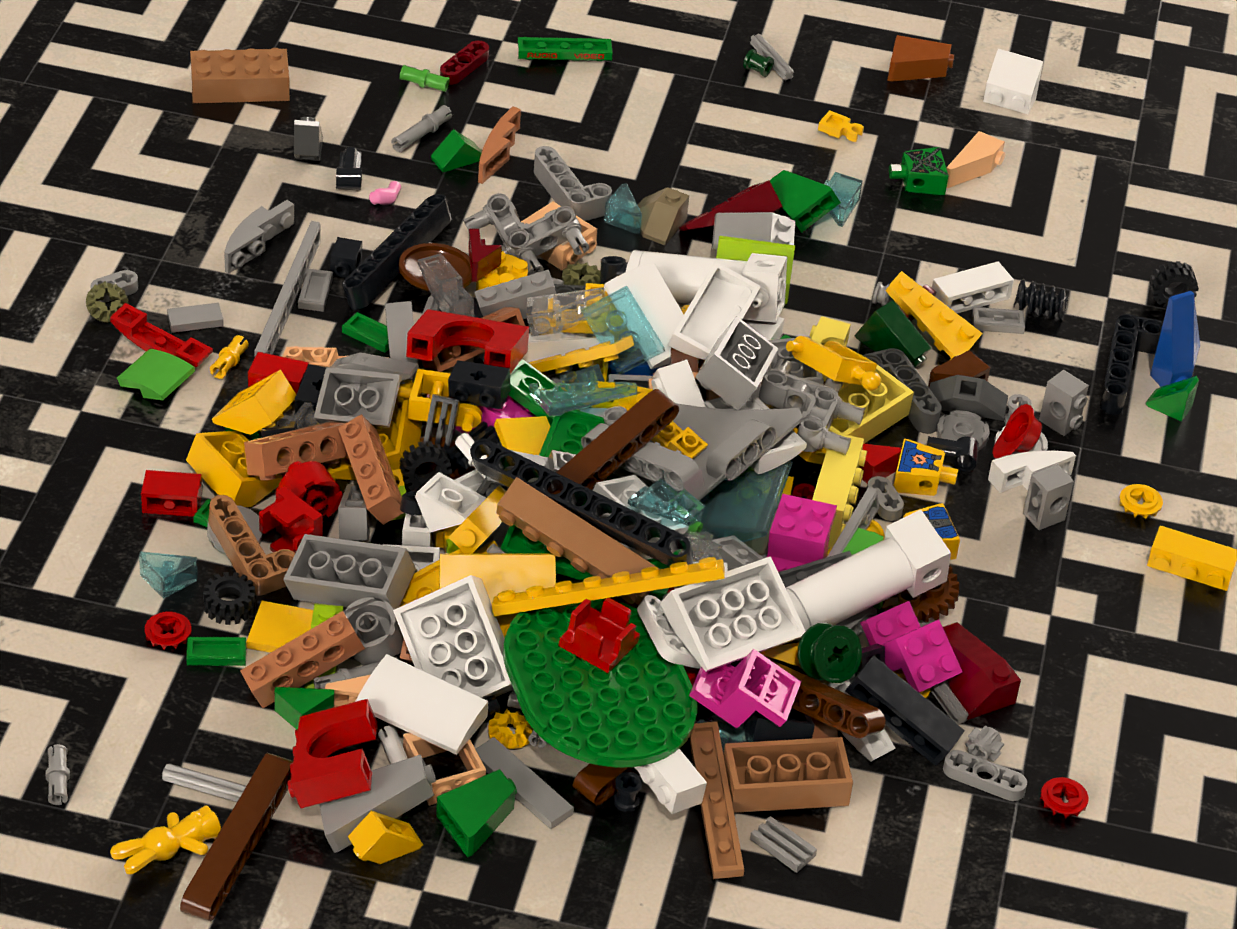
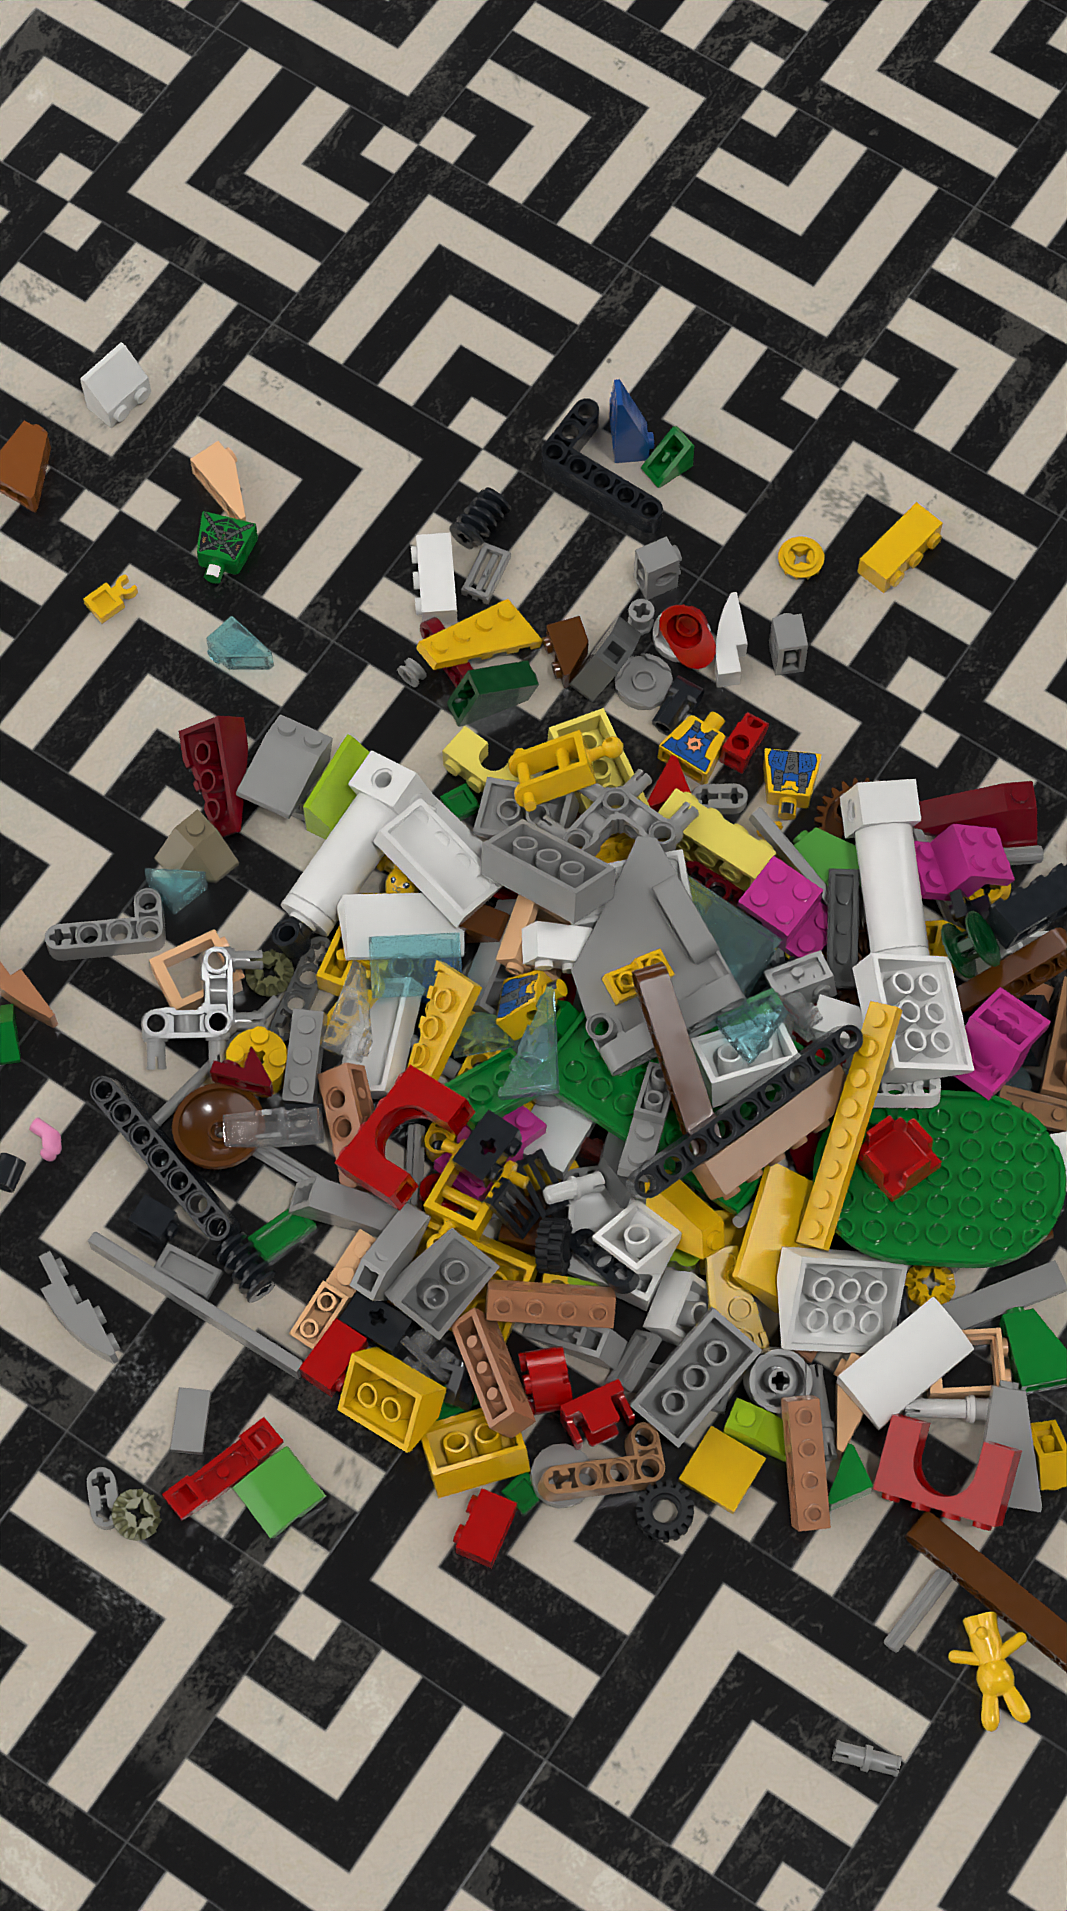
camera: 65 degrees left, 25 degrees up
(166, 621) = (691, 1574): red gear -> none
(167, 572) = (610, 1567): clear light blue slope -> none
(216, 651) = (732, 1546): green tile -> none
(229, 357) = (277, 1402): yellow pin -> none
(330, 312) = (244, 1267): none -> black piece
(523, 433) = (563, 1130): yellow tile -> none
(803, 198) = (234, 693): green slope -> none
(925, 407) = (574, 702): dark grey beam -> none
(949, 494) = (743, 742): none -> red leg
(1169, 275) = (509, 379): black tyre -> none

